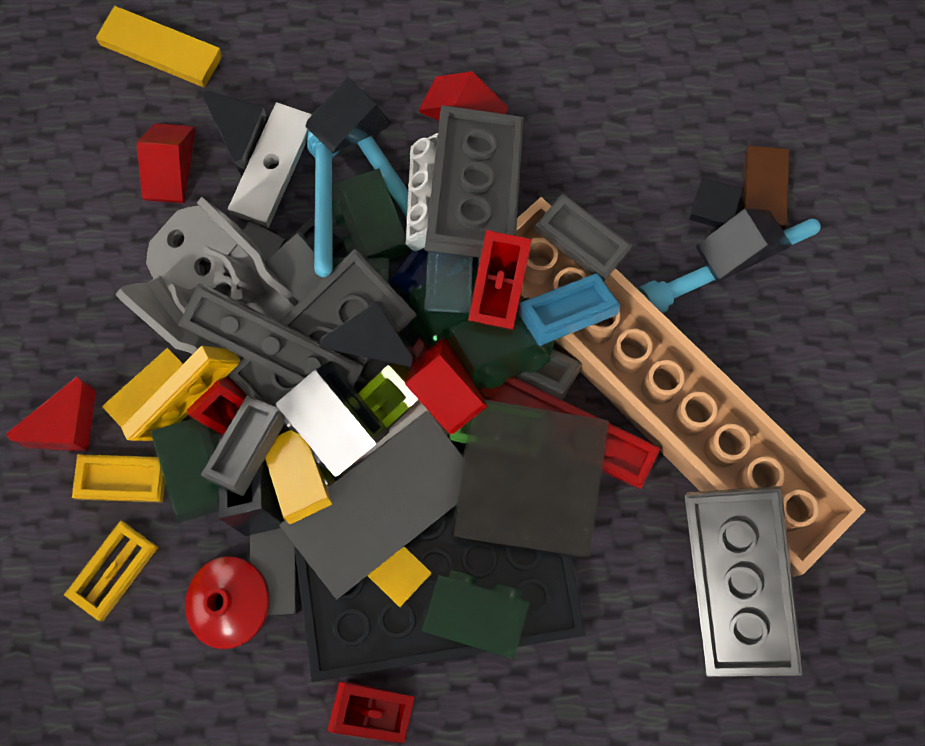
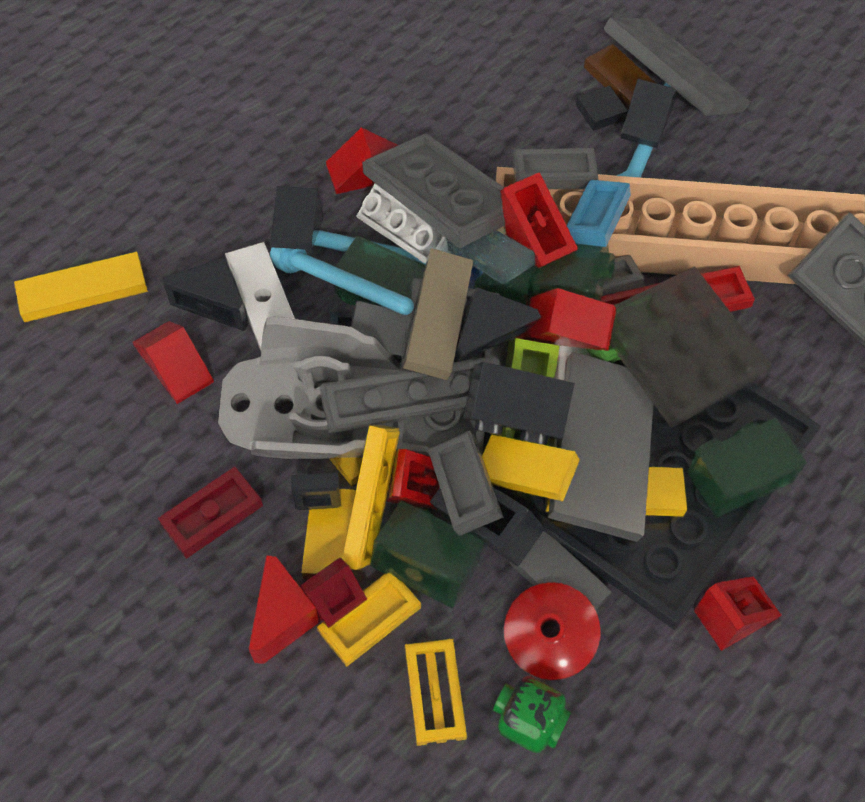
camera: 45 degrees left, 15 degrees down
(82, 307) = (210, 512): none -> dark red plate
(99, 442) = (334, 592): none -> dark red plate
(150, 648) = (531, 714): none -> green head
(153, 355) = (316, 491): none -> black tile
(340, 296) = (438, 314): none -> dark tan tile
(819, 217) = (676, 66): none -> dark grey tile

